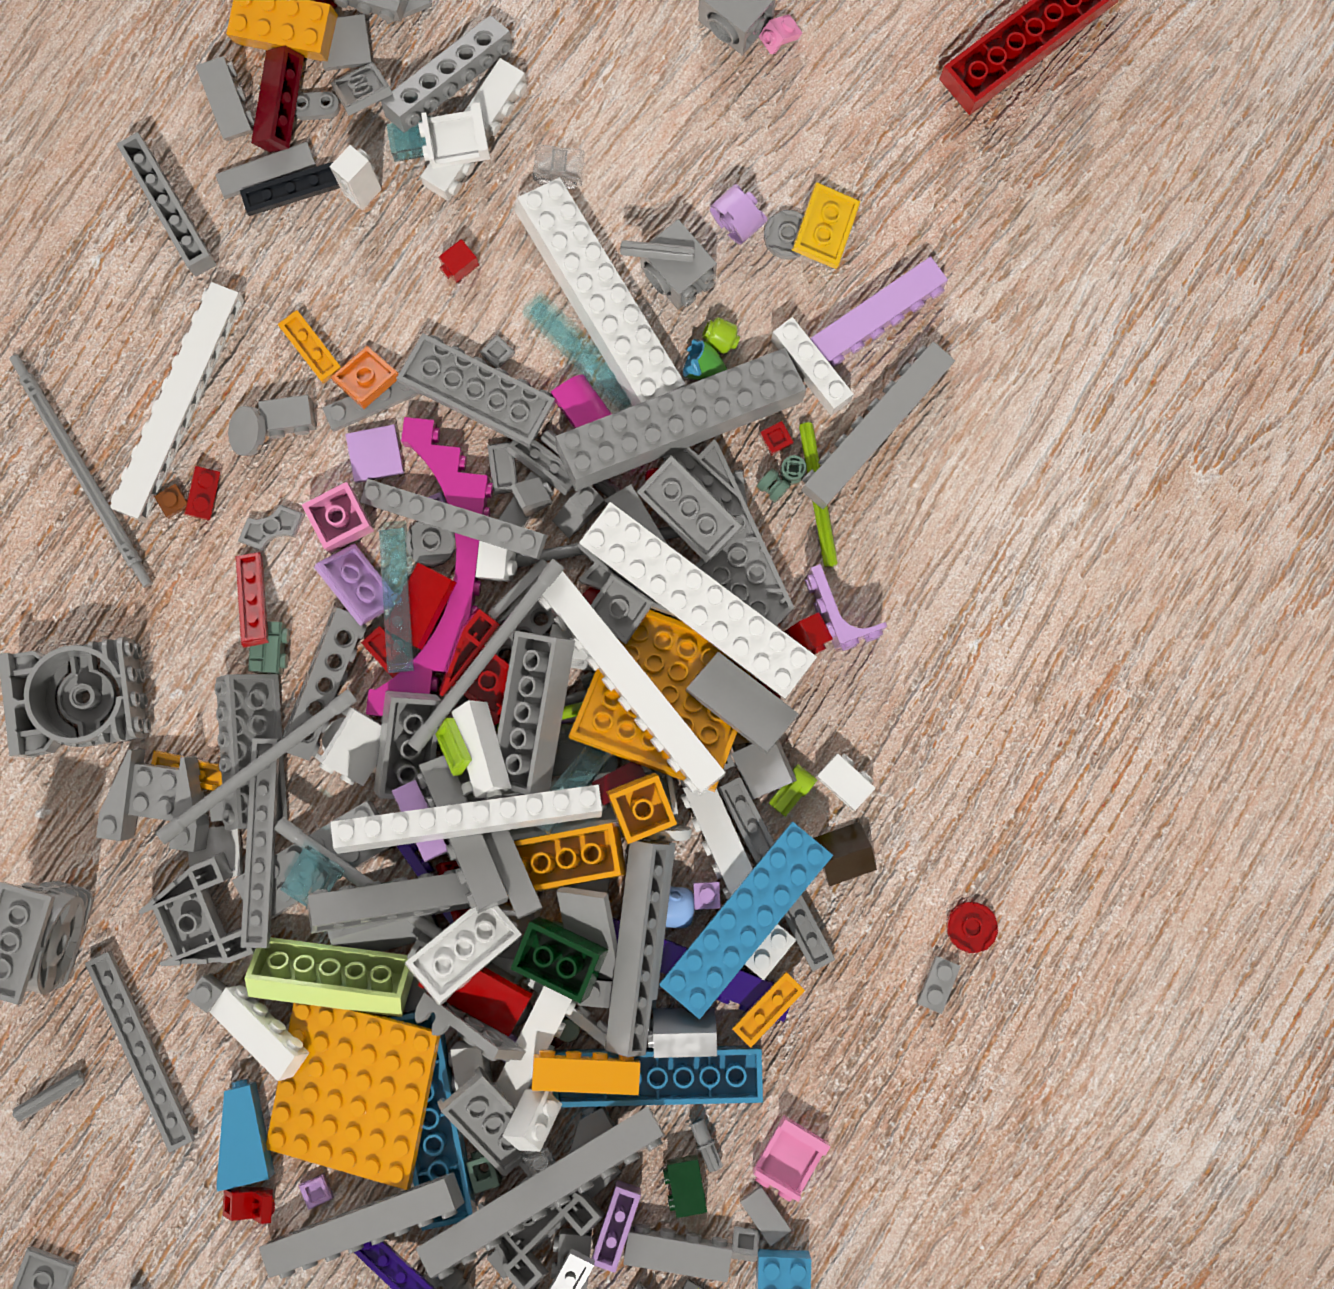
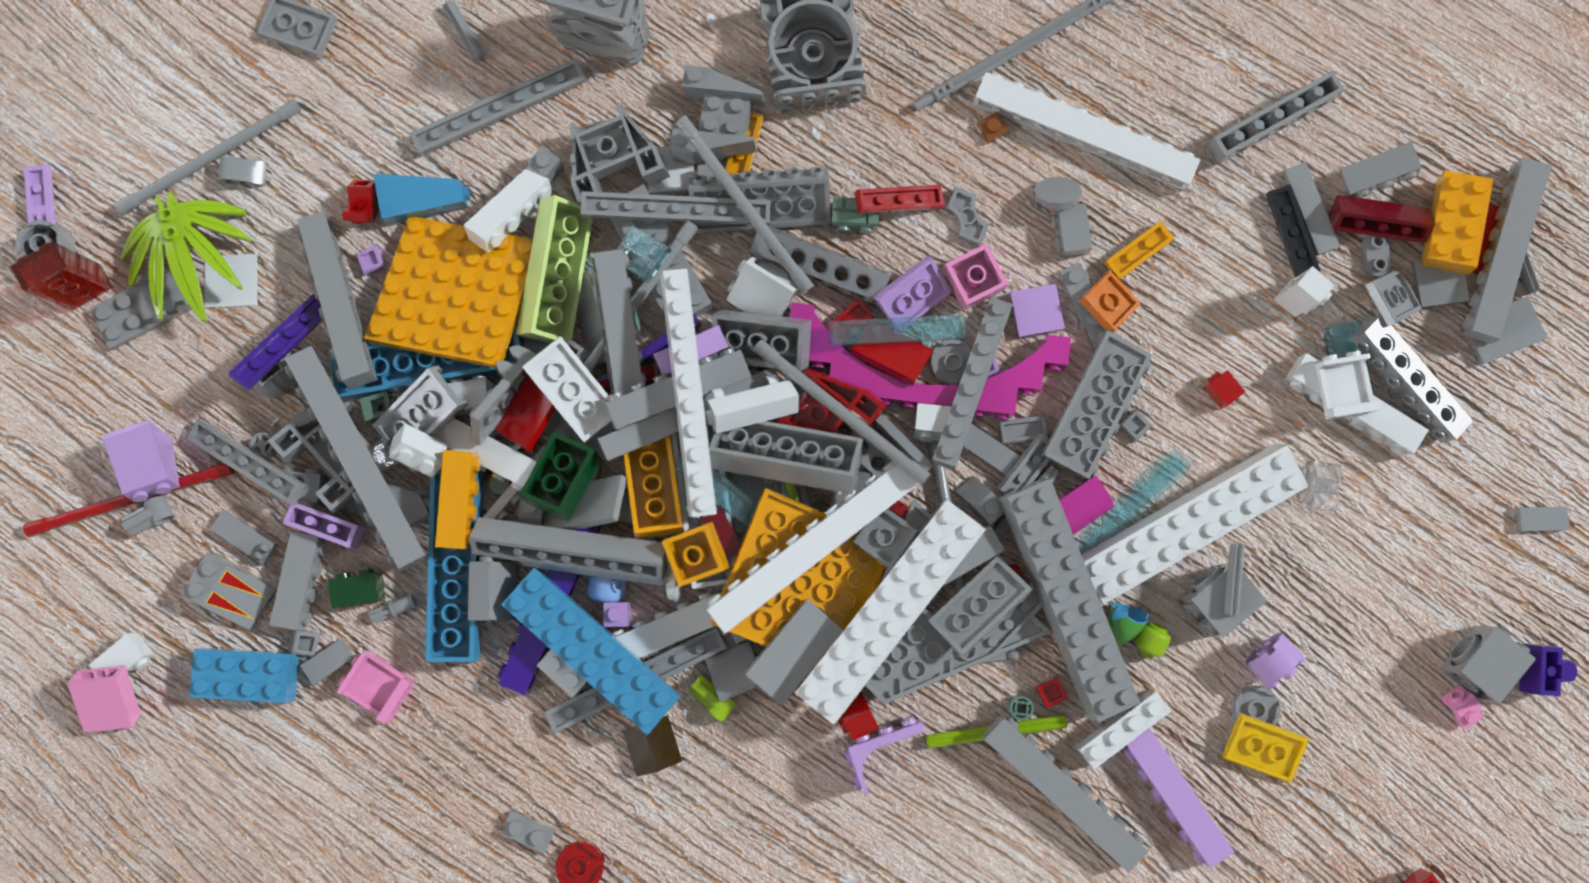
camera: 95 degrees right, 0 degrees up
(202, 493) = (999, 154): red plate -> none
(453, 747) = (756, 380): lime tile -> none
(532, 495) = (994, 456): light grey slope -> none
(768, 1009) = (509, 669): light orange plate -> none
(777, 489) = (1001, 692): sand green wheel -> none
(846, 781) = (719, 749): white brick -> none

